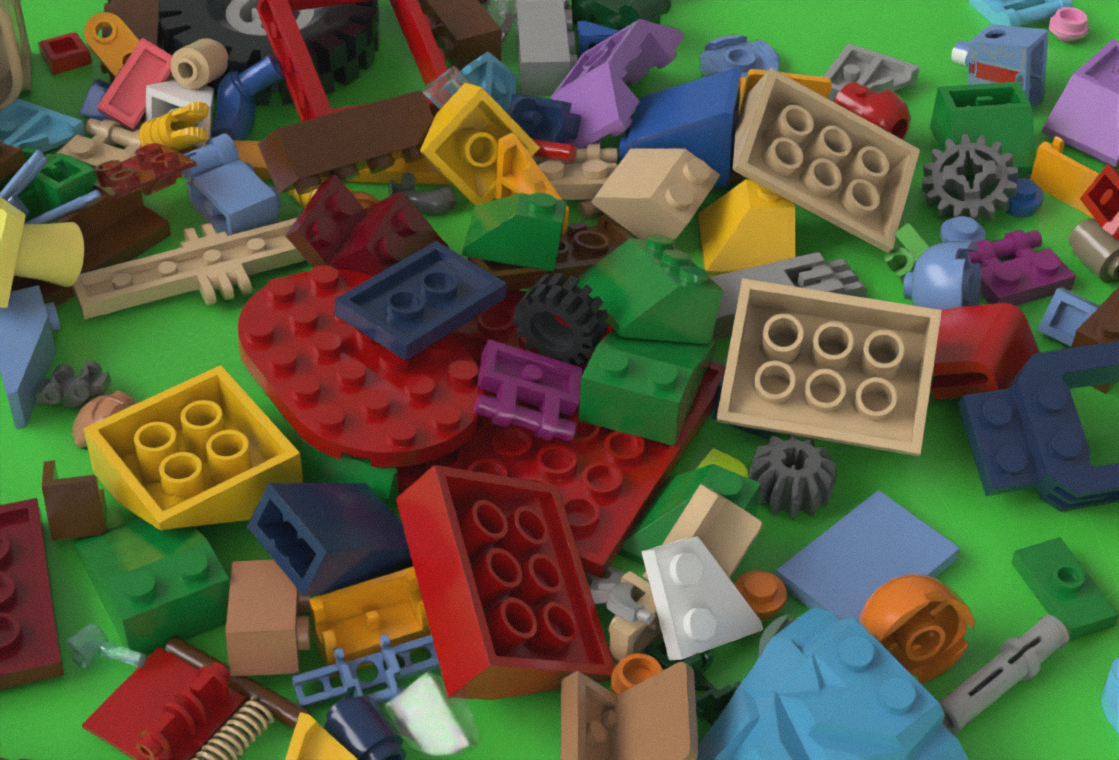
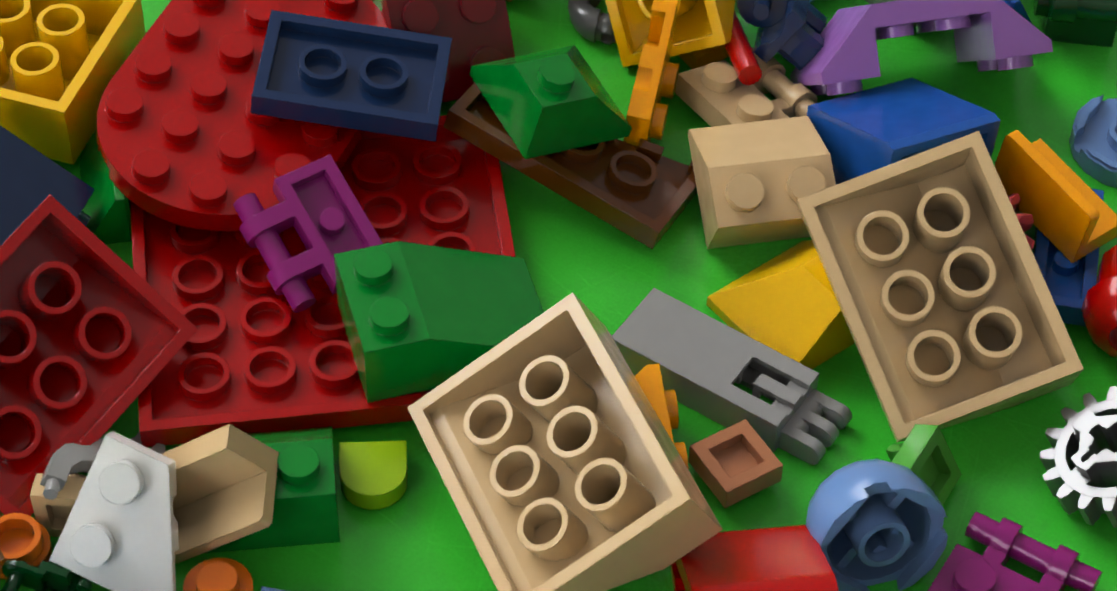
camera: 55 degrees right, 5 degrees up
(573, 306) = (429, 193): black tyre -> none
(655, 292) = (562, 245): green slope -> none
(793, 475) = (413, 531): dark grey gear -> none
(961, 229) = (1022, 500): medium blue plate -> none

